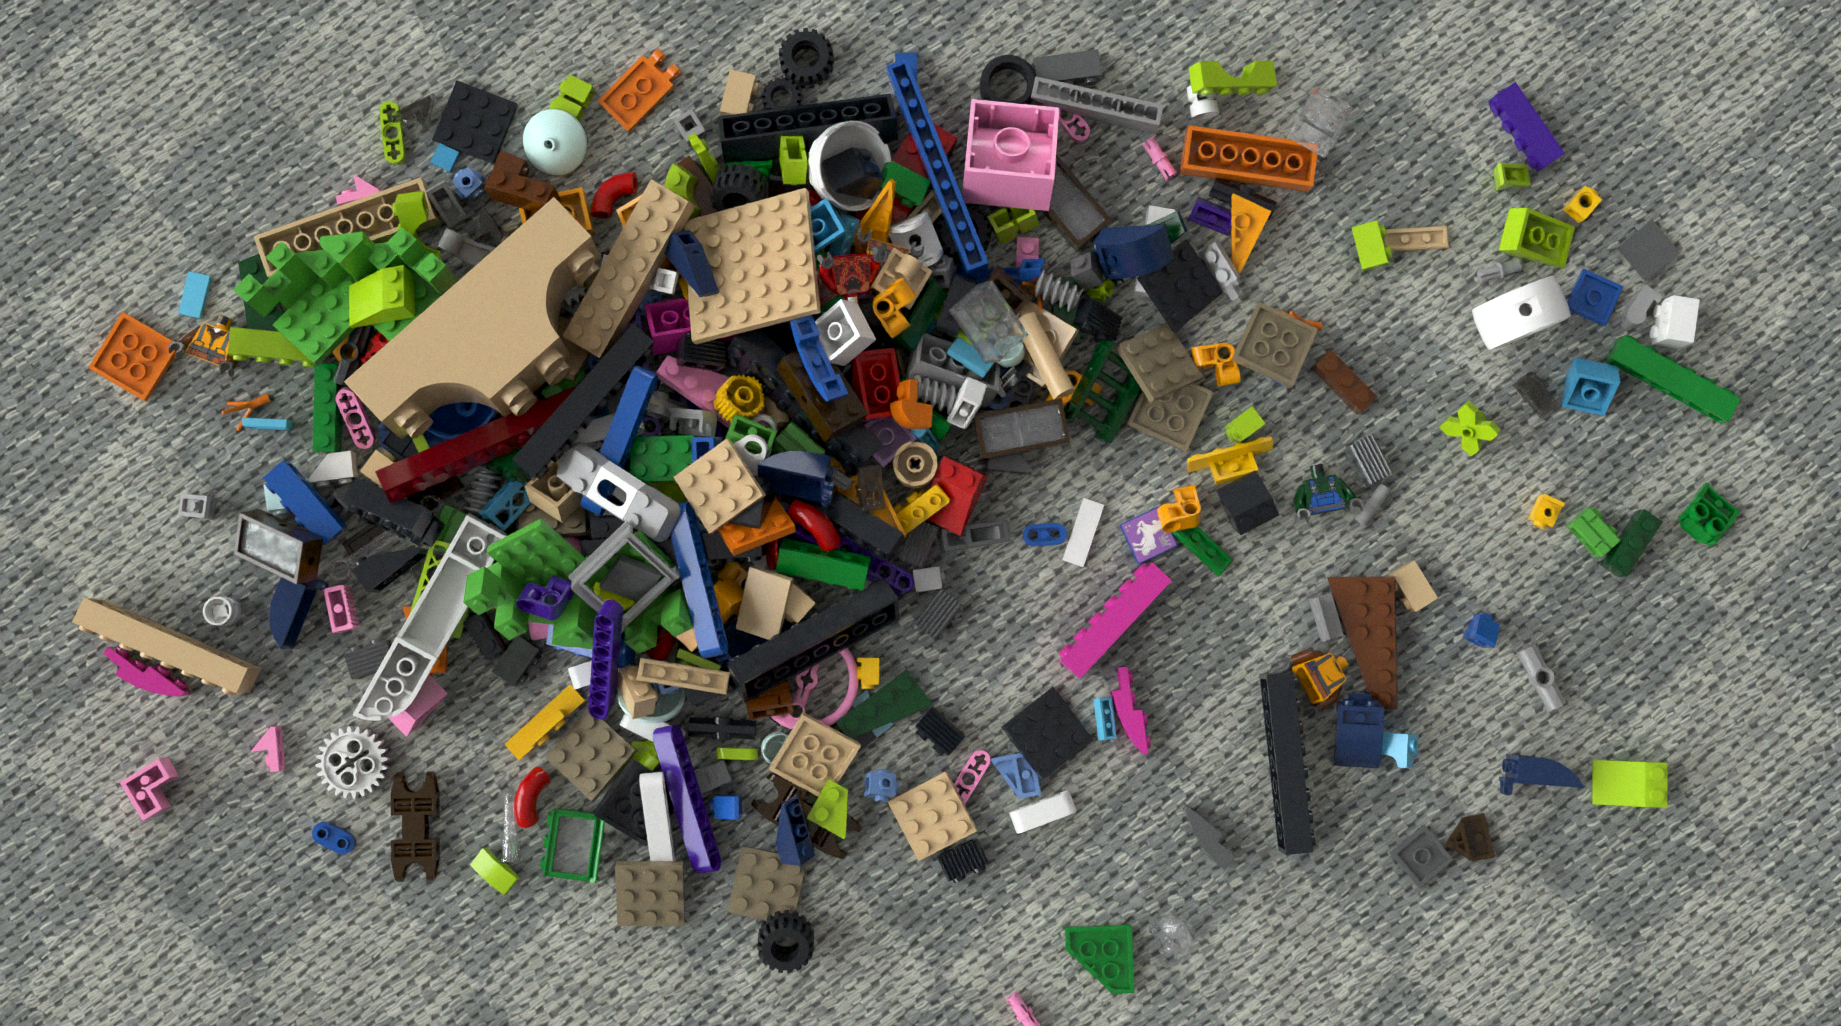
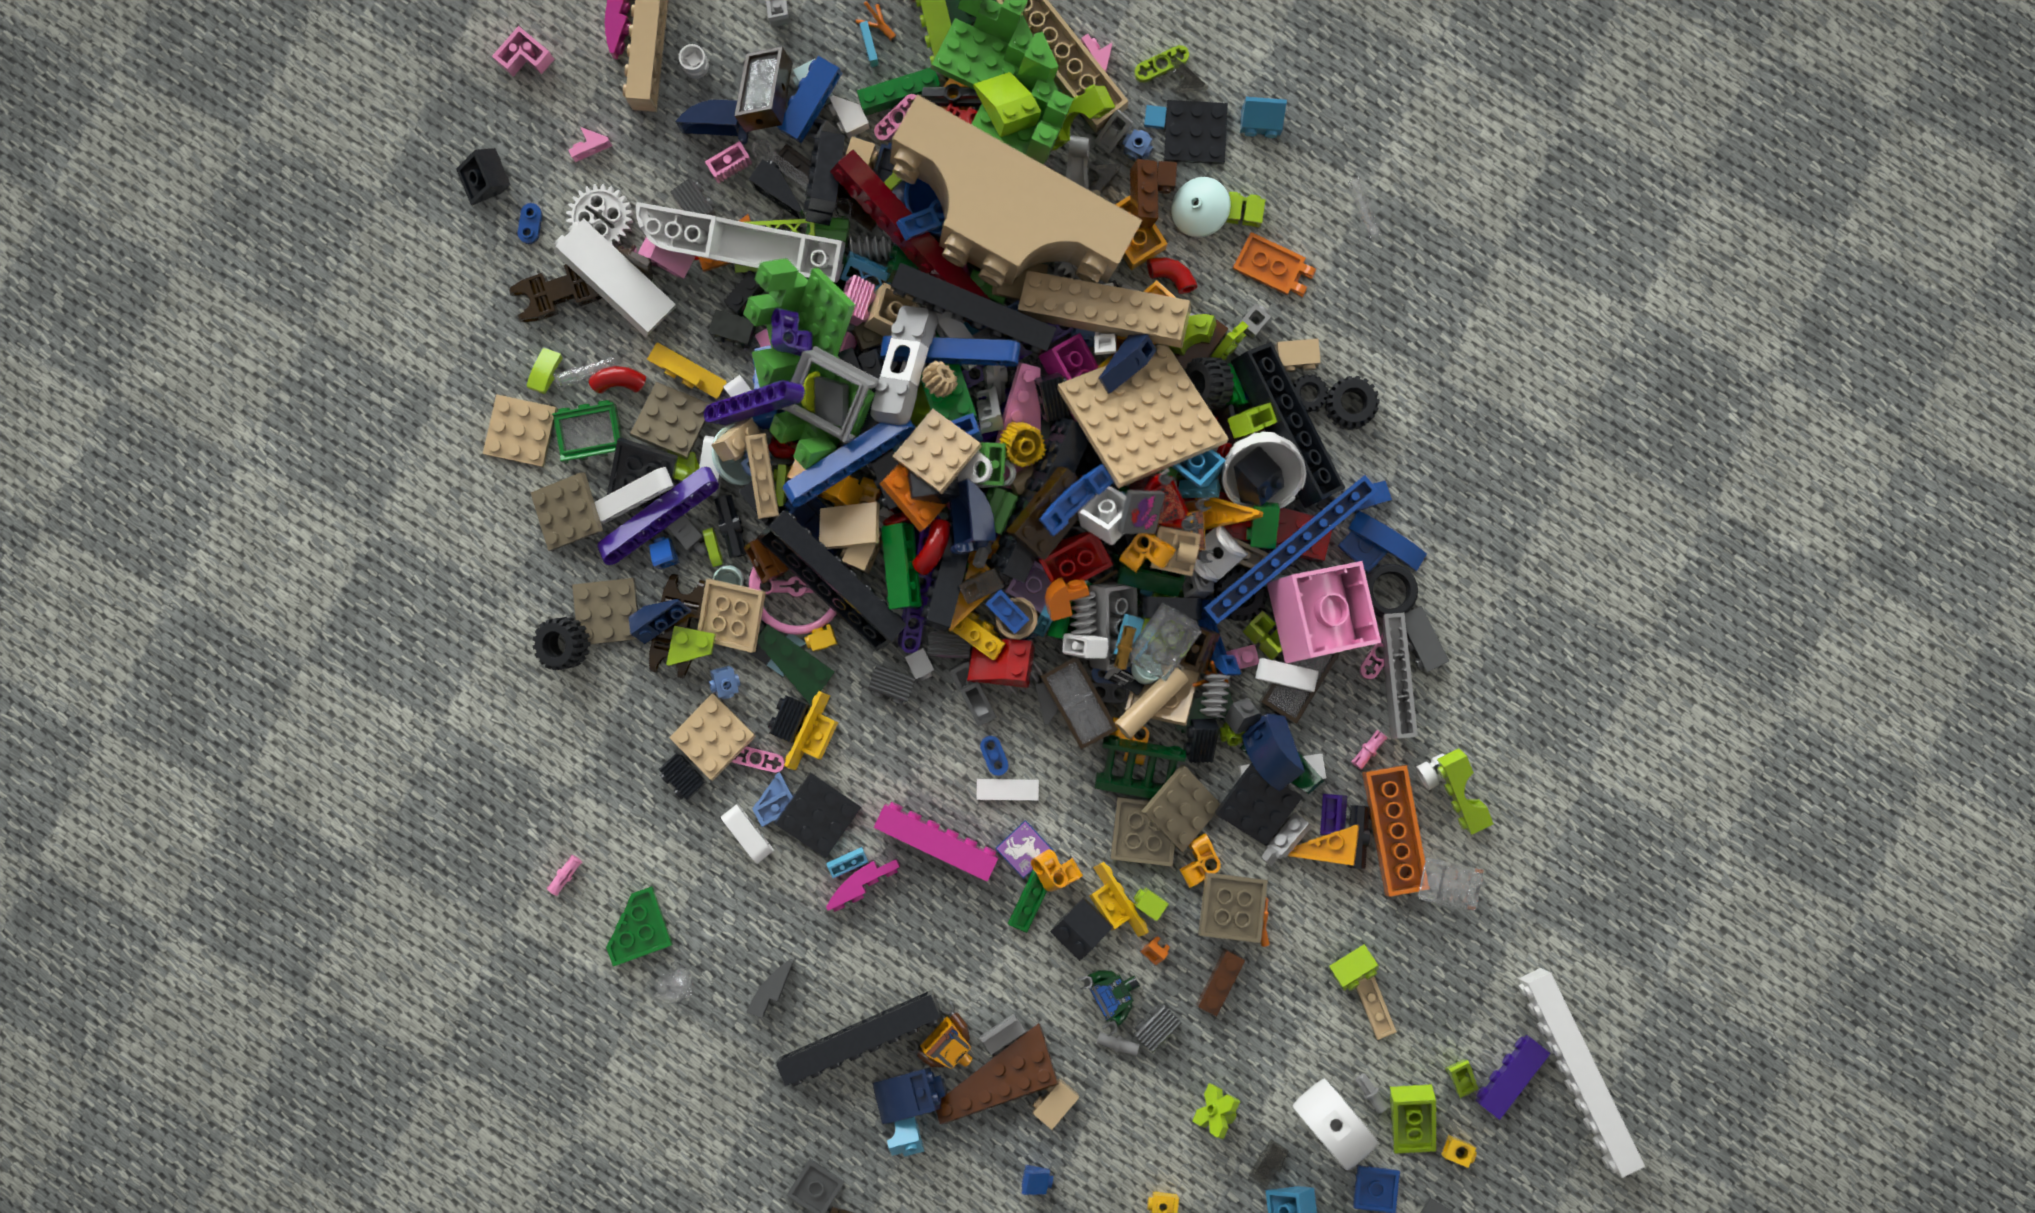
camera: 80 degrees right, 0 degrees up
(266, 871) = (483, 175): none -> black slope
(416, 738) = (640, 262): none -> dark brown slope
(421, 766) = (613, 277): none -> white brick
(476, 430) = (918, 223): none -> blue plate
(483, 48) = (1262, 116): none -> dark azure slope
(528, 512) = (862, 295): none -> bright pink brick
(548, 916) = (519, 430): none -> tan plate
(645, 460) = (939, 379): none -> tan gear
(852, 297) = (1141, 512): none -> dark grey tile
(906, 469) = (1007, 611): none -> blue plate
(952, 92) = (1362, 550): none -> blue tile
(956, 69) = (1387, 539): none -> blue slope
(964, 710) = (814, 733): none -> yellow bracket
(981, 363) = (1125, 647): none -> pearl gold pin
(1060, 212) = (1286, 675): none -> white beam
(1293, 438) = (1154, 951): none -> orange tile
(1542, 59) = (1581, 1072): none -> white brick

